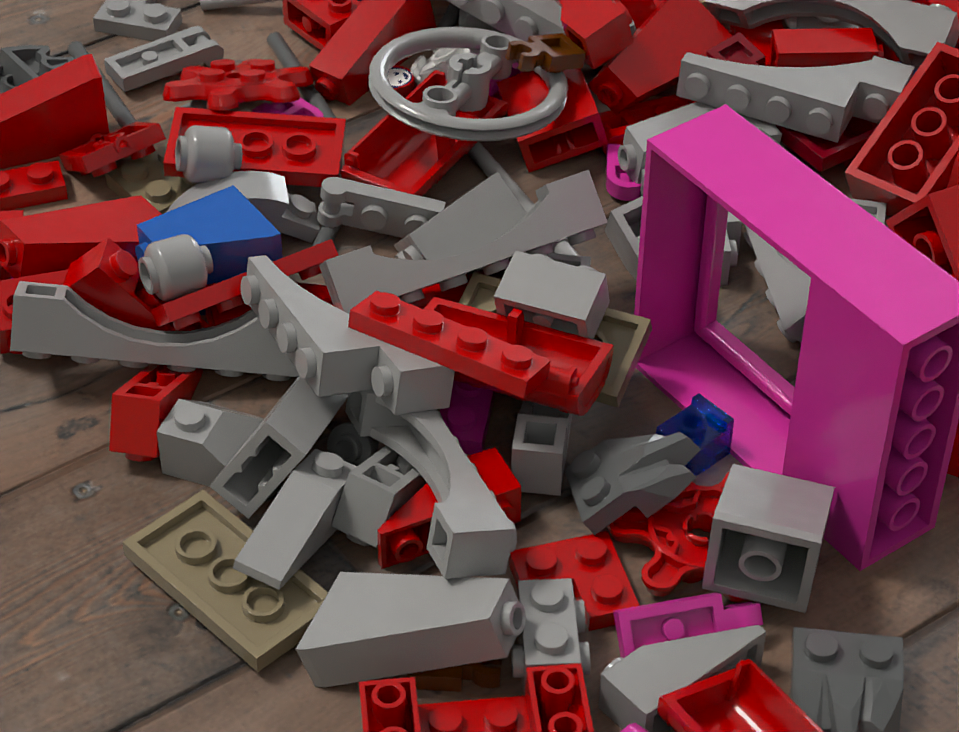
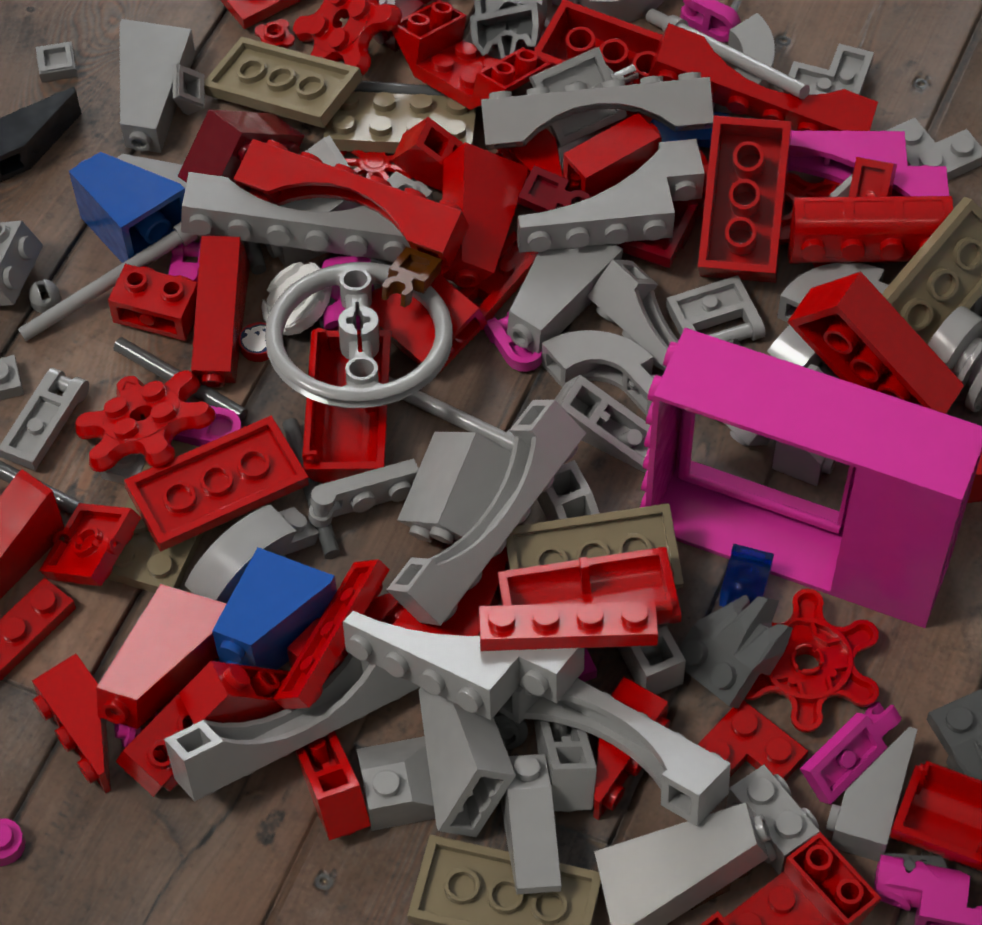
camera: 30 degrees left, 15 degrees up
(175, 267) = (280, 657): light grey head -> none
(207, 153) = (202, 522): light grey head -> none
(554, 294) = (595, 526): light grey brick -> none
(767, 537) = (872, 647): light grey slope -> none

